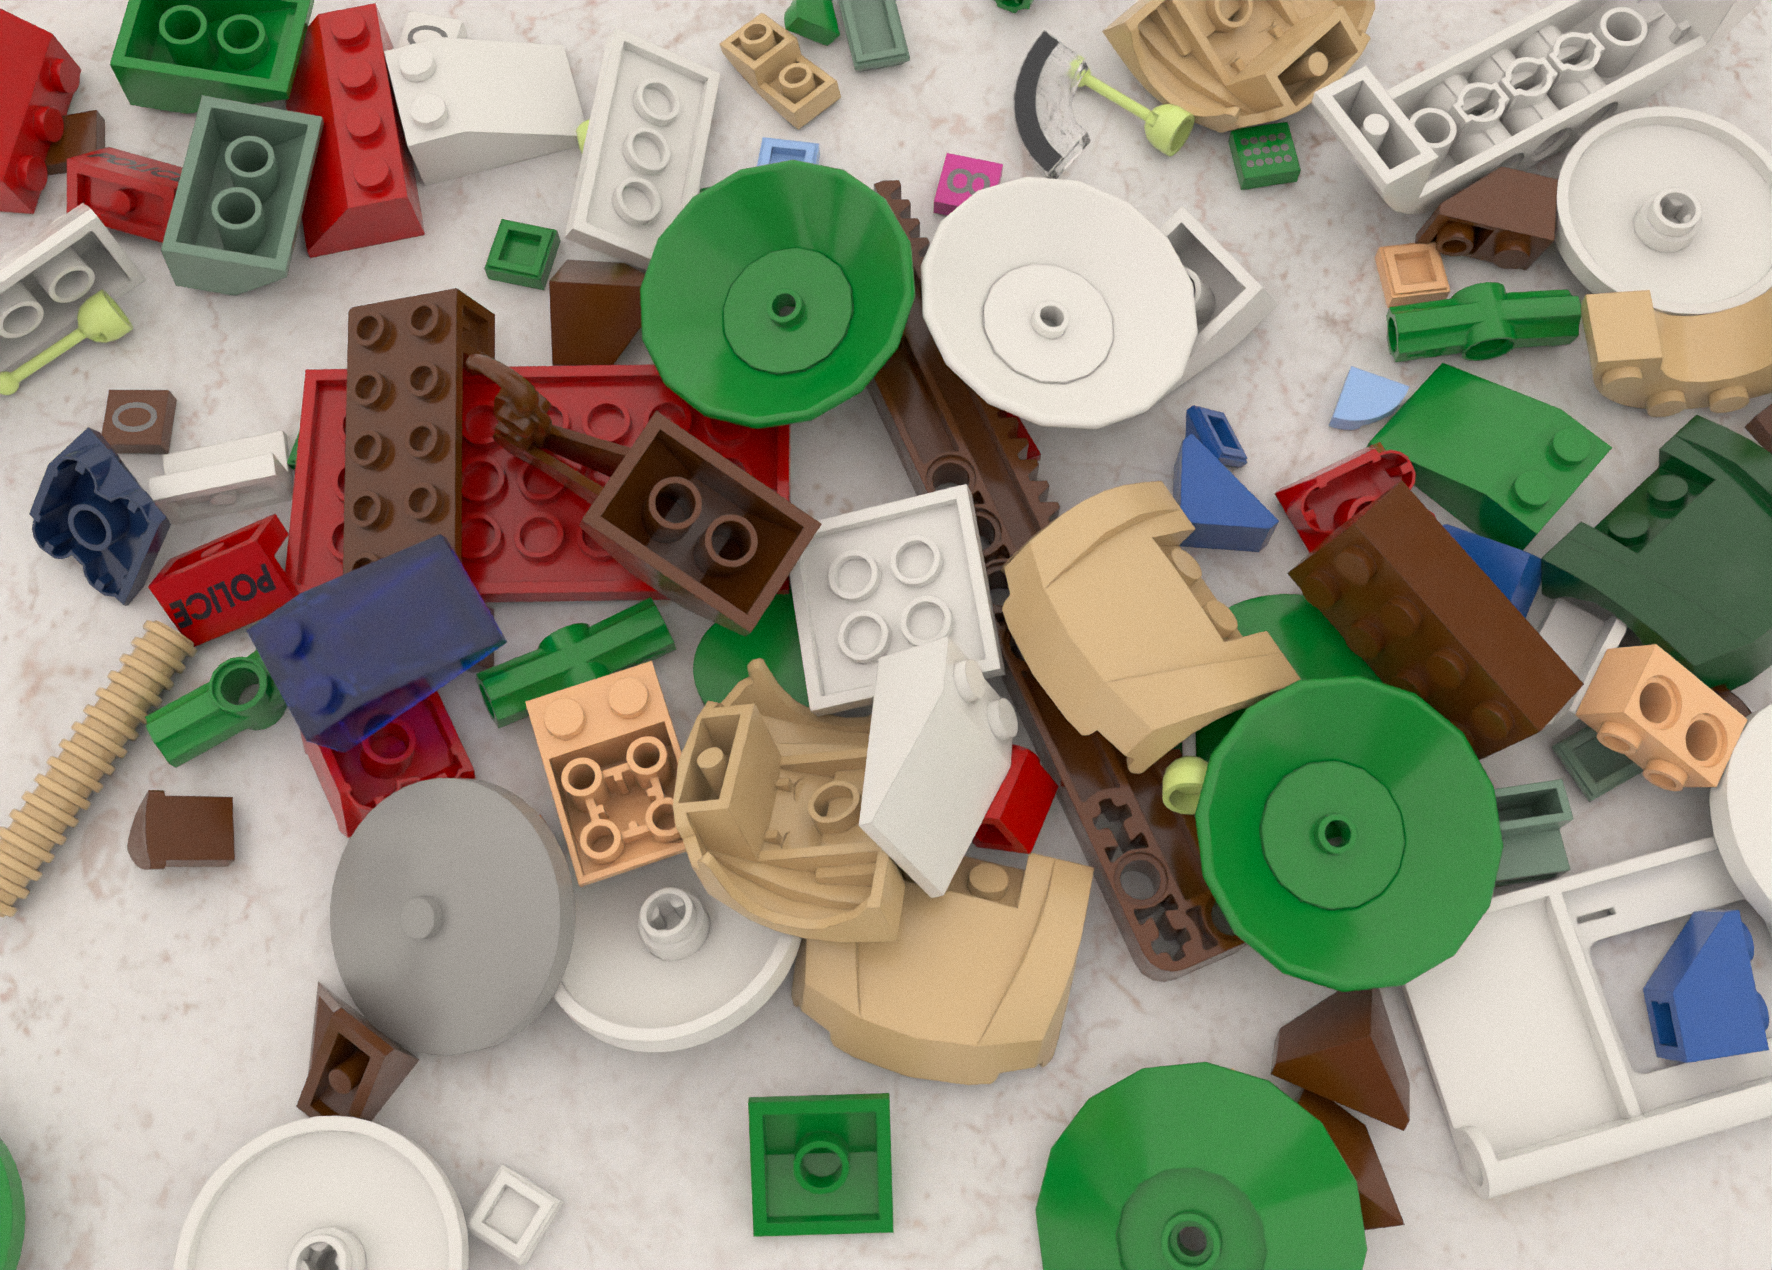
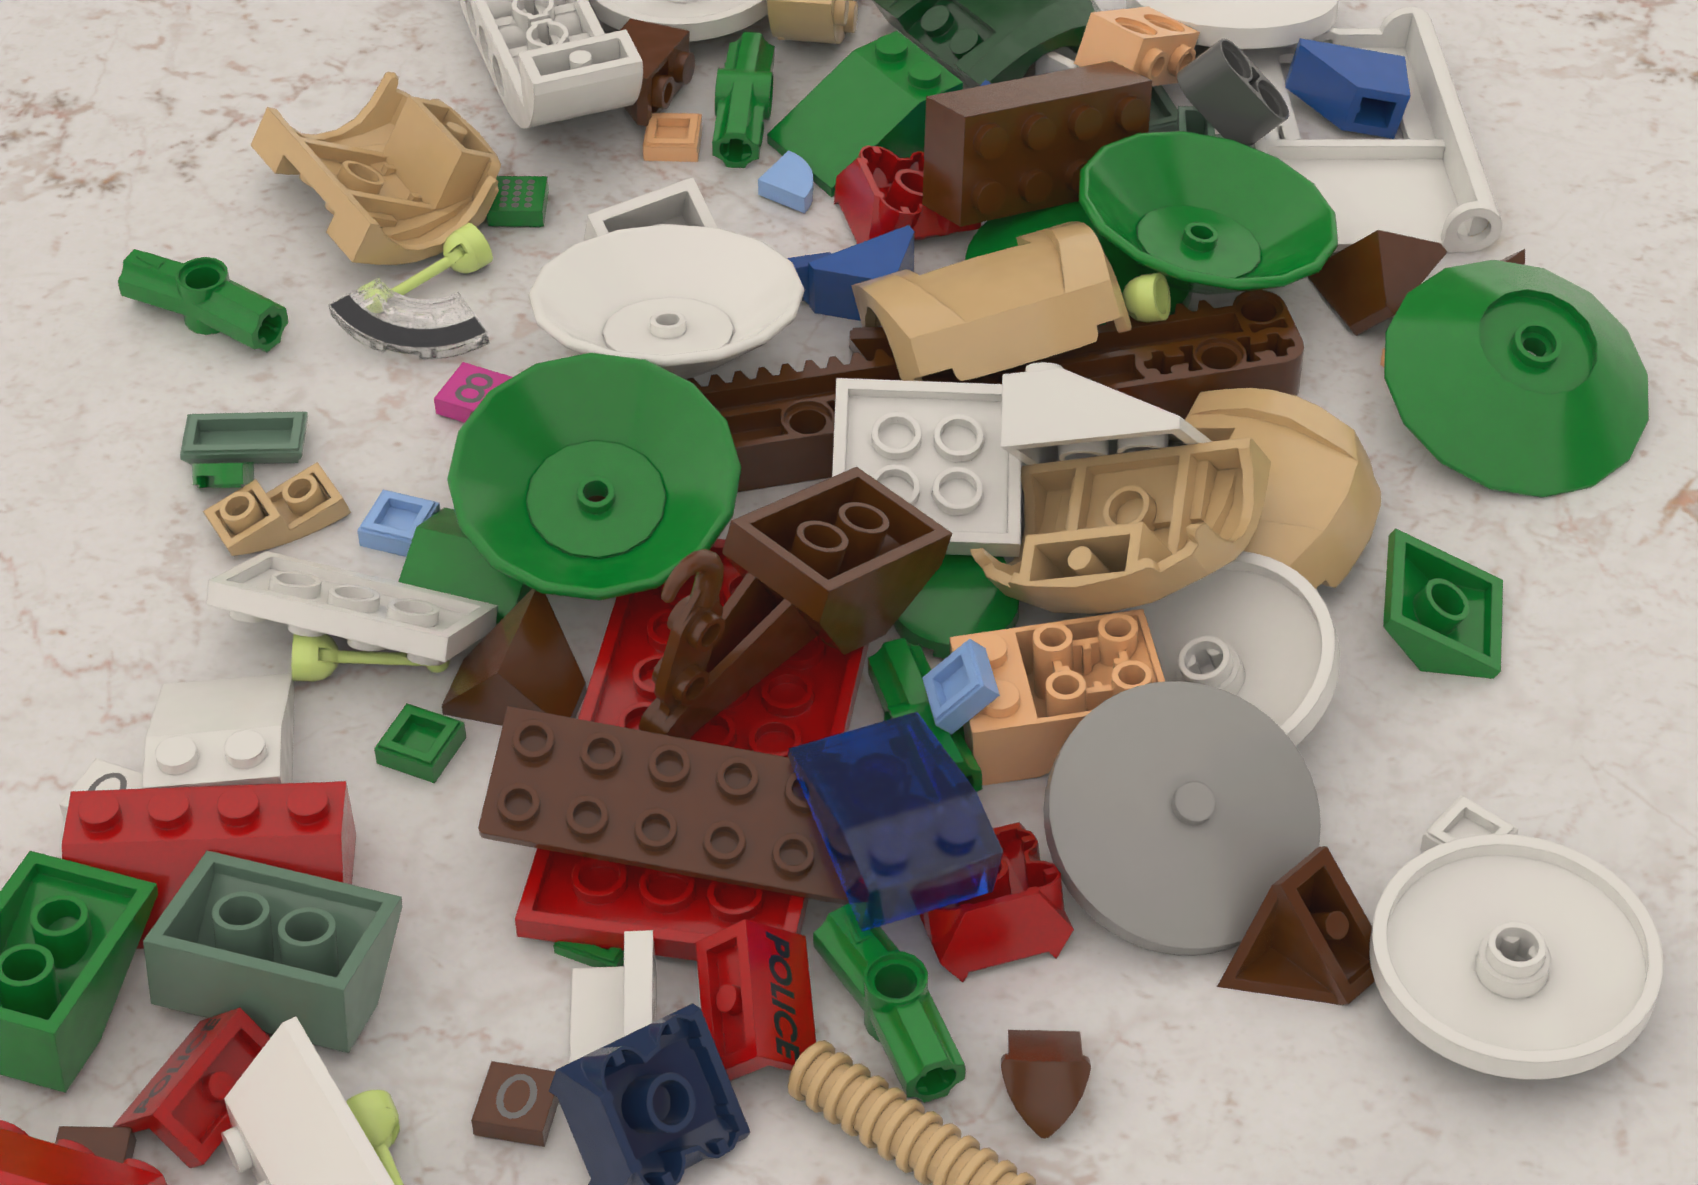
camera: 80 degrees left, 25 degrees down
(569, 678) = (960, 686): none -> light blue tile
(1577, 836) = (1232, 93): none -> dark grey beam

